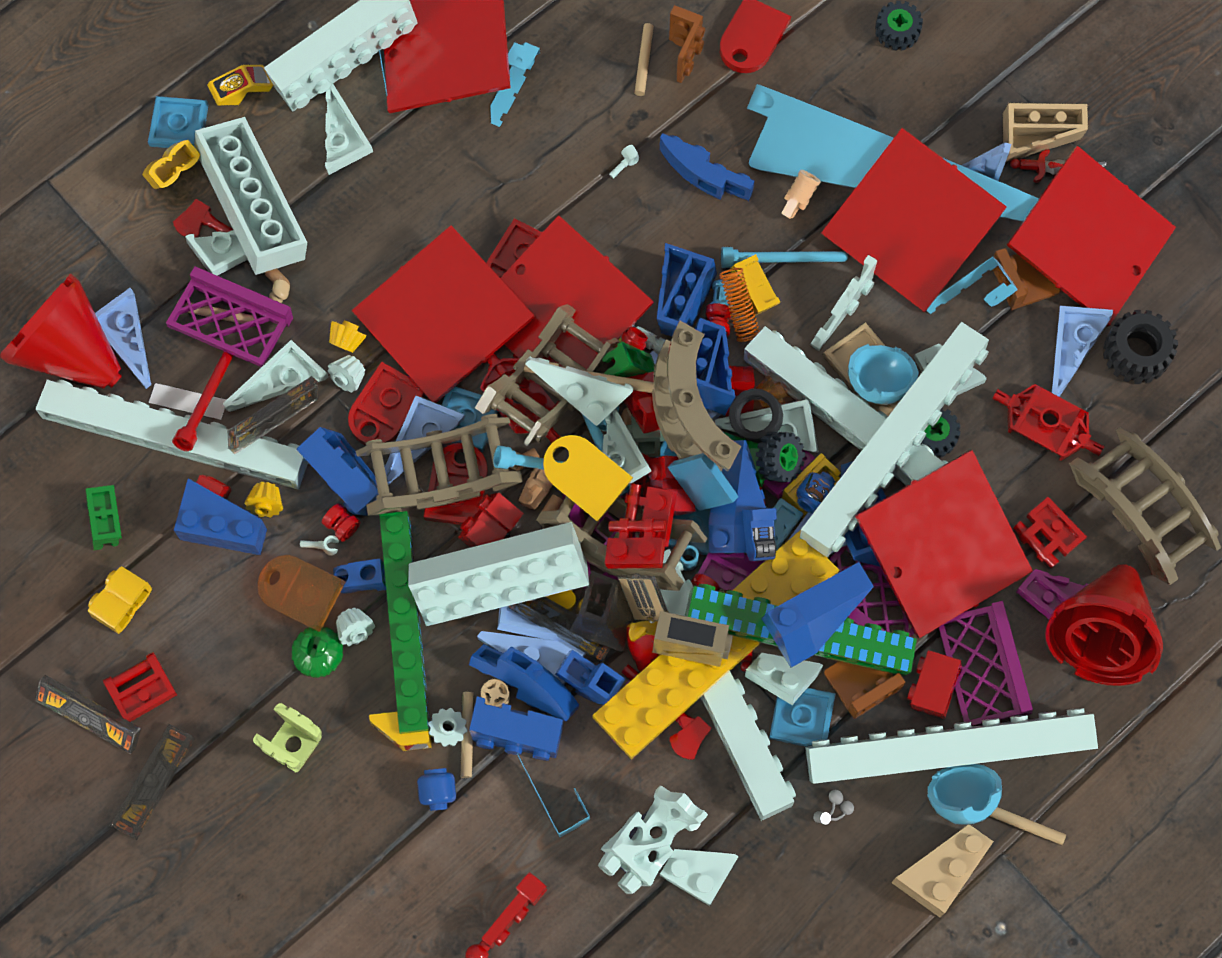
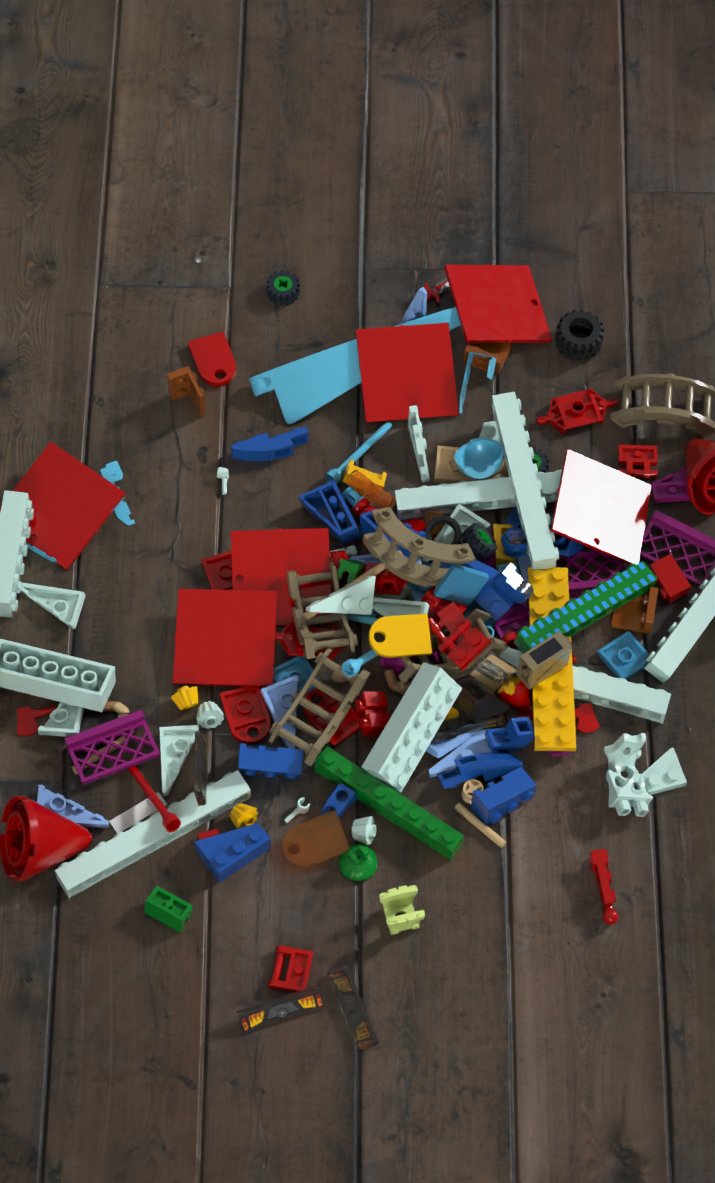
camera: 50 degrees left, 10 degrees down
(119, 599) = (227, 938): yellow brick -> none
(341, 522) = (300, 785): red wheel -> none
(388, 726) = (443, 858): yellow slope -> none
(436, 788) = (498, 862): blue head -> none
(453, 719) = (470, 828): light aqua piece -> none
(535, 489) = (375, 679): light nougat hinge -> none
(574, 826) = (574, 798): medium azure piece -> none
(644, 59) = (171, 420): tan bar -> none
(777, 677) = (595, 645): light aqua wing -> none
(800, 193) = (334, 412): light nougat hinge -> none
(814, 615) = (587, 593): blue wedge -> none
(836, 798) = (684, 677): light grey piece -> none
(1042, 127) = (412, 273): tan wedge -> none
(1075, 337) = (543, 357): light blue wing -> none

